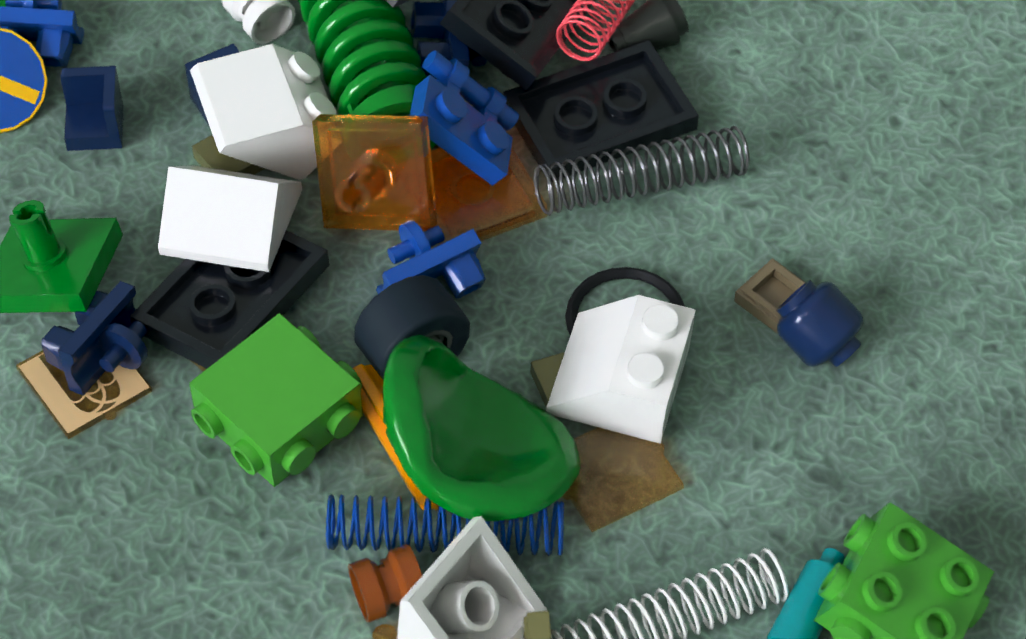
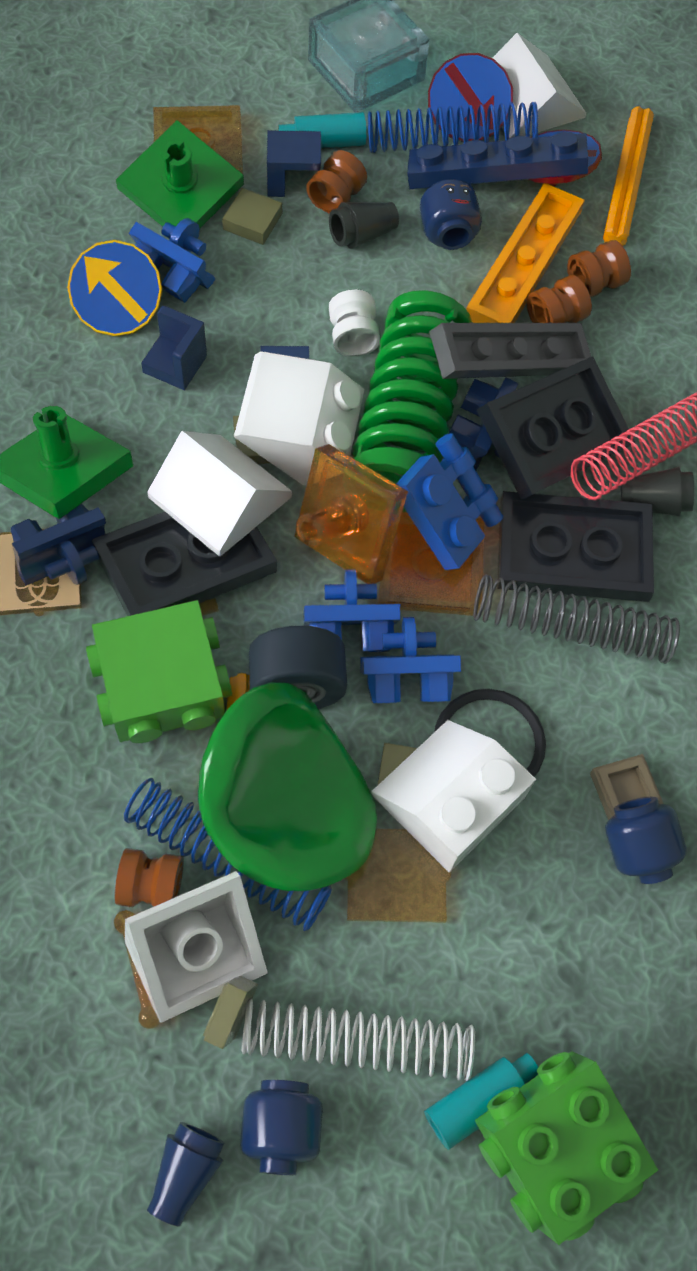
camera: 25 degrees right, 10 degrees up
(493, 298) = (433, 670): none -> blue hips

